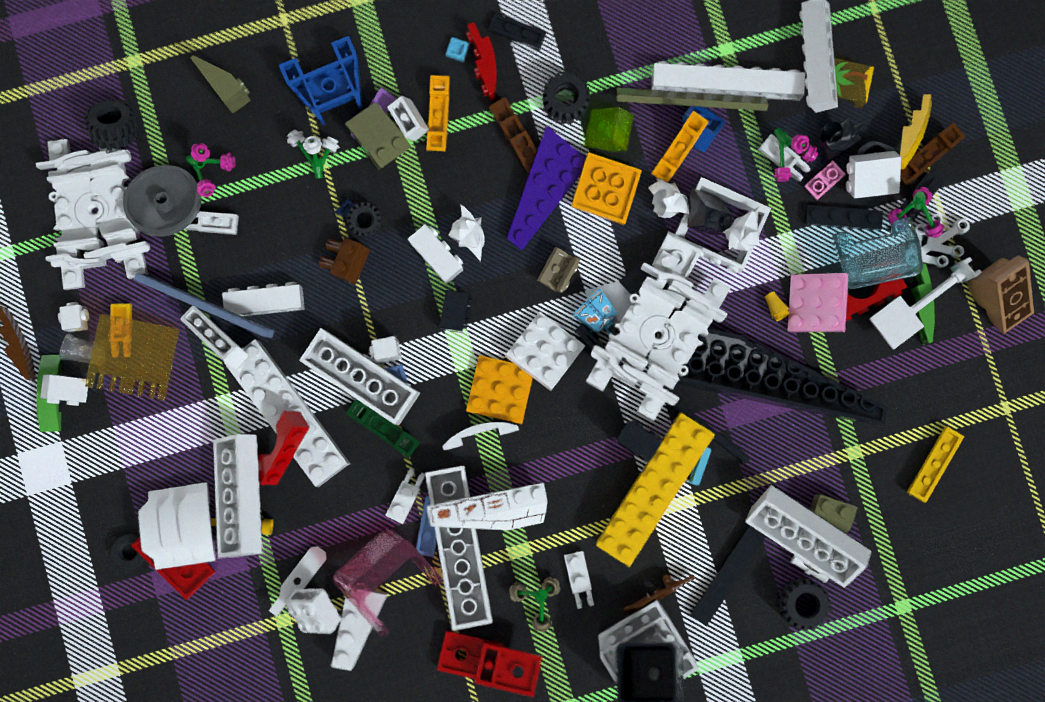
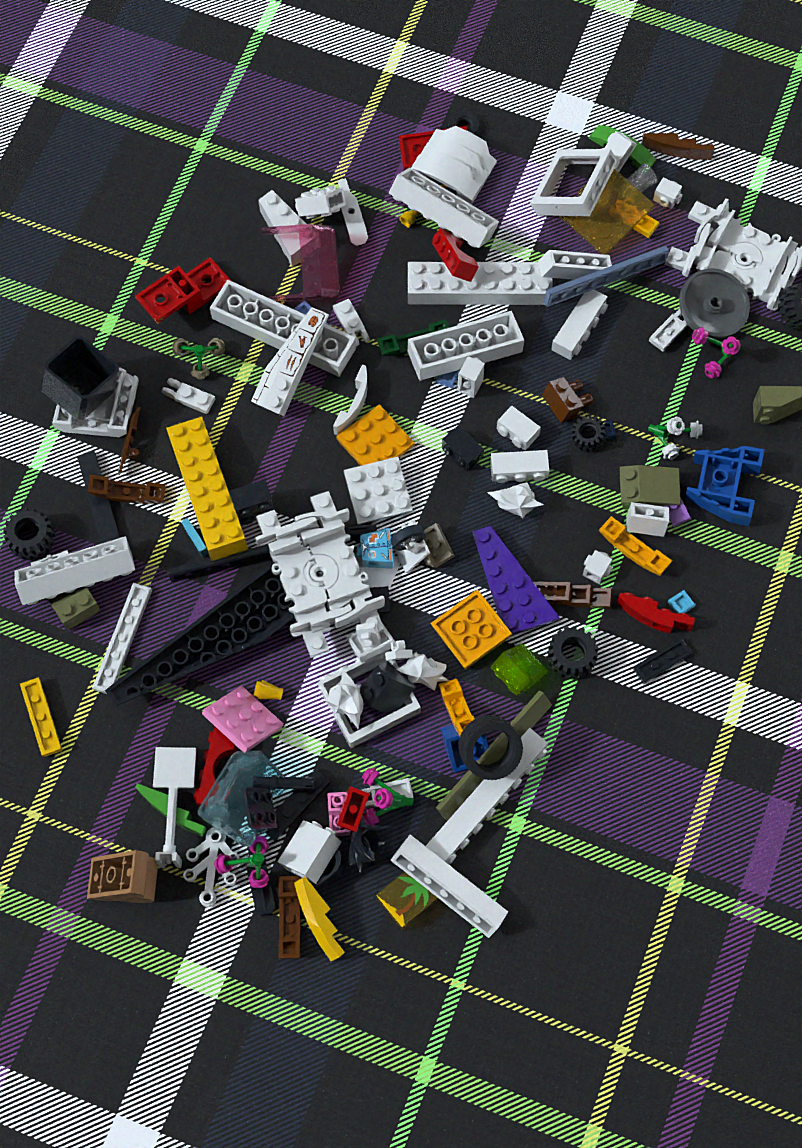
camera: 130 degrees right, 15 degrees down
(147, 369) = (574, 206): none -> white piece
(402, 280) = (518, 428): none -> white brick
(477, 131) = (597, 566): none -> white brick
(576, 285) = (410, 545): none -> plate
(675, 222) = (398, 651): none -> white tile
(679, 257) = (368, 634): none -> white tile
(695, 103) = (506, 763): none -> black tyre
(704, 557) = (126, 492): none -> reddish brown slope
(822, 163) = (352, 809): none -> red slope
(823, 456) = (122, 637): none -> white tile
(839, 230) = (283, 782): none -> black pin
(879, 230) = (259, 809): none -> black bracket

